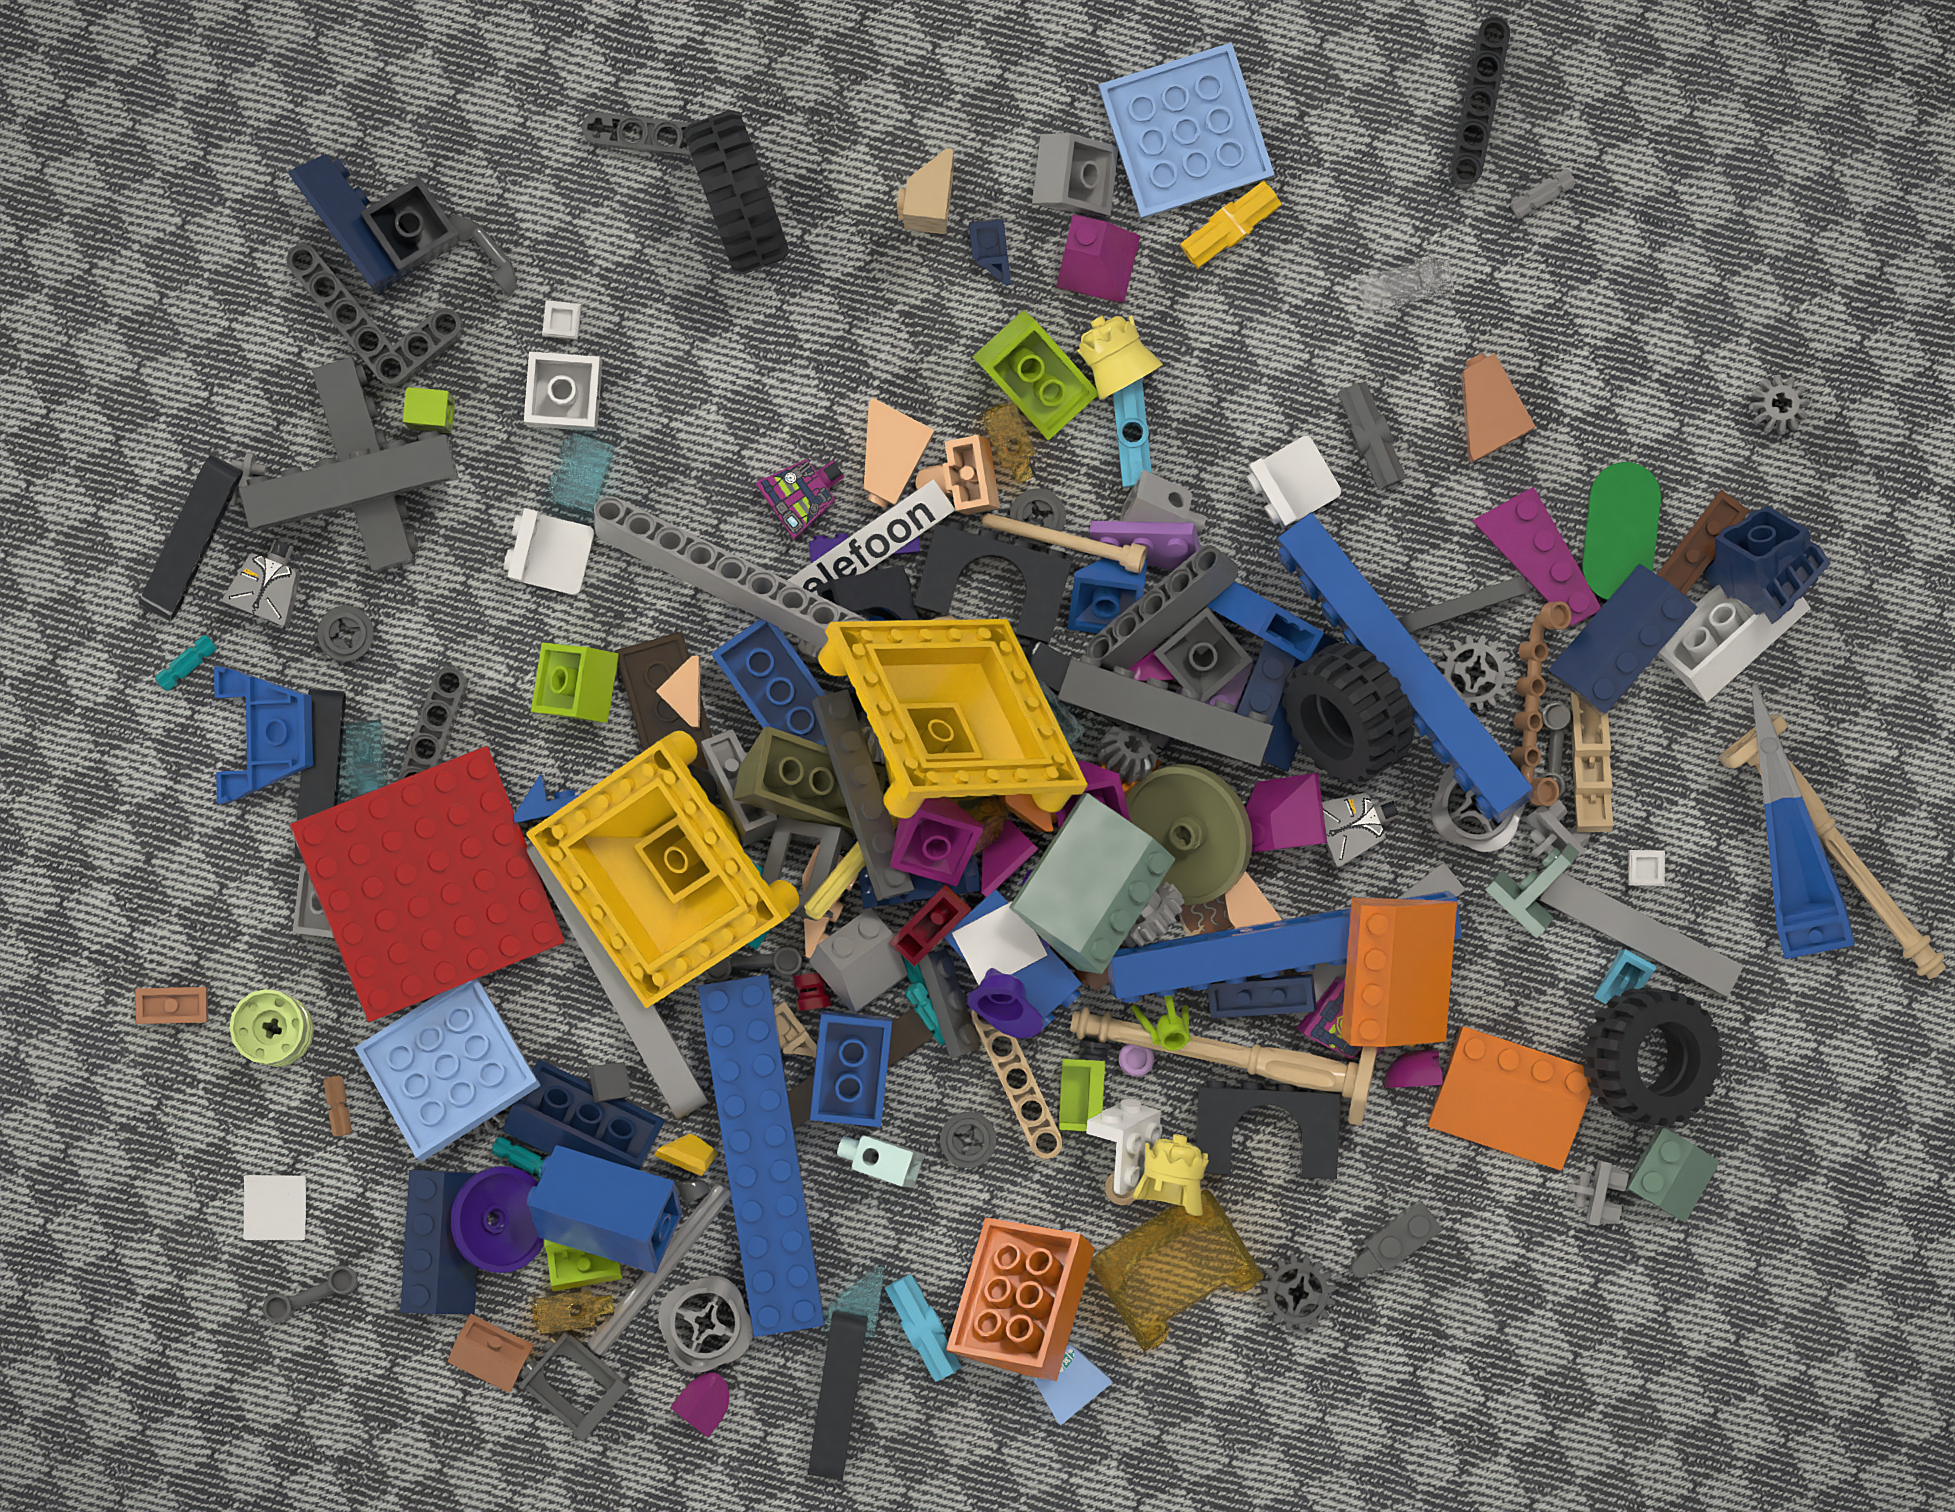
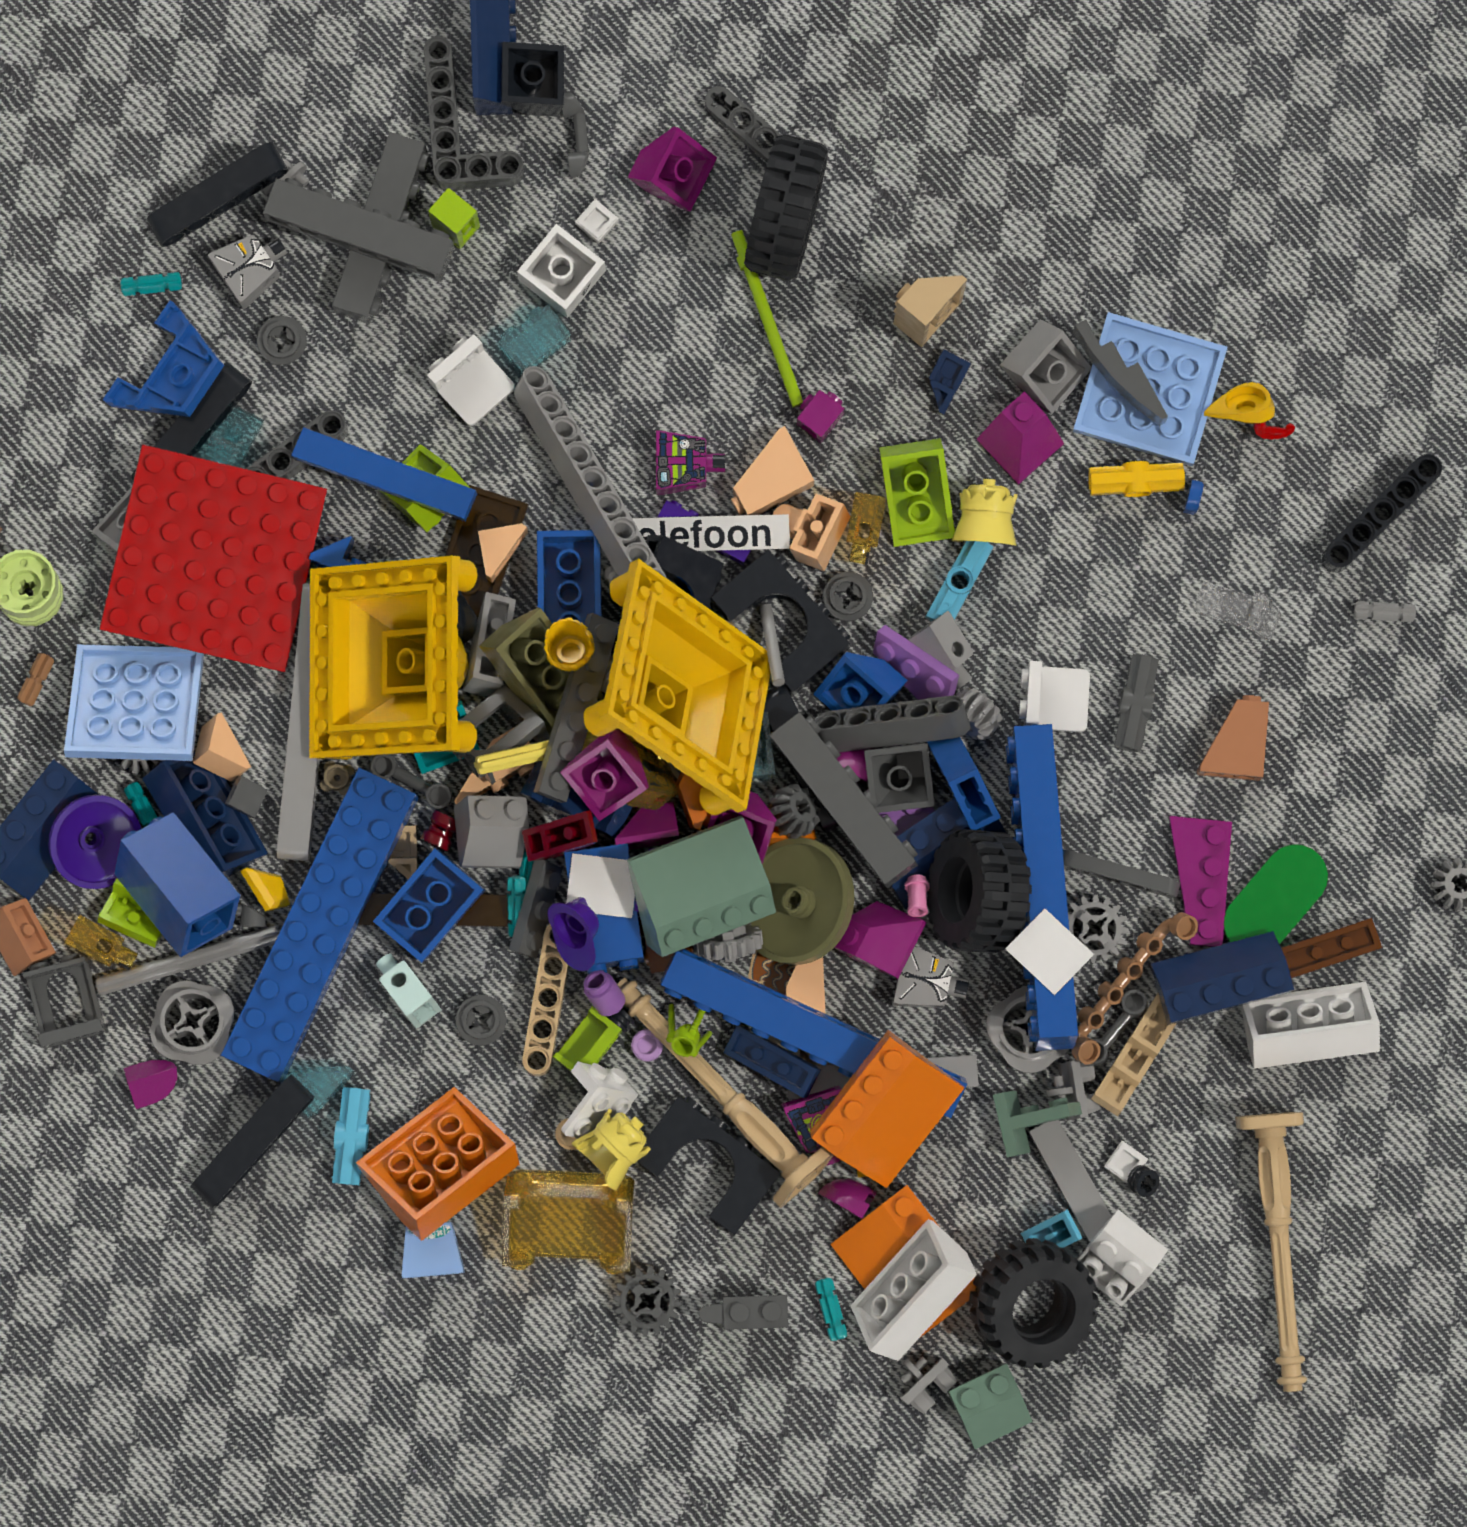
camera: 30 degrees right, 5 degrees down
(532, 697) = (384, 474): none -> blue tile
(555, 1055) = (219, 750): none -> light nougat slope
(600, 222) = (673, 168): none -> magenta slope
(671, 1003) = (331, 770): none -> dark tan plate
(787, 307) = (768, 322): none -> lime bar
(817, 743) = (568, 644): none -> yellow hair
(896, 362) = (820, 414): none -> magenta brick
(1000, 611) = (772, 645): none -> light grey bar
(1067, 1040) = (604, 993): none -> medium lavender brick
(1131, 556) = (895, 669): tan piece -> none
(1164, 139) = (1127, 381): none -> dark grey slope
(1236, 542) = (981, 712): none -> light grey gear
(1288, 84) = (1250, 405): none -> yellow piece
(1288, 747) = (917, 895): none -> bright pink pin
(1294, 205) = (1193, 497): none -> blue tile
(1453, 727) = (1049, 951): none -> white sticker
(1468, 1185) = (831, 1309): none -> teal axle
(1534, 1120) = (912, 1291): none -> white slope
(1666, 874) = (1137, 1175): none -> black bush
(1702, 958) = (1121, 1257): none -> white slope
(1766, 562) = (1368, 991): dark blue slope -> none
(1805, 891) = (1234, 1258): blue plate -> none

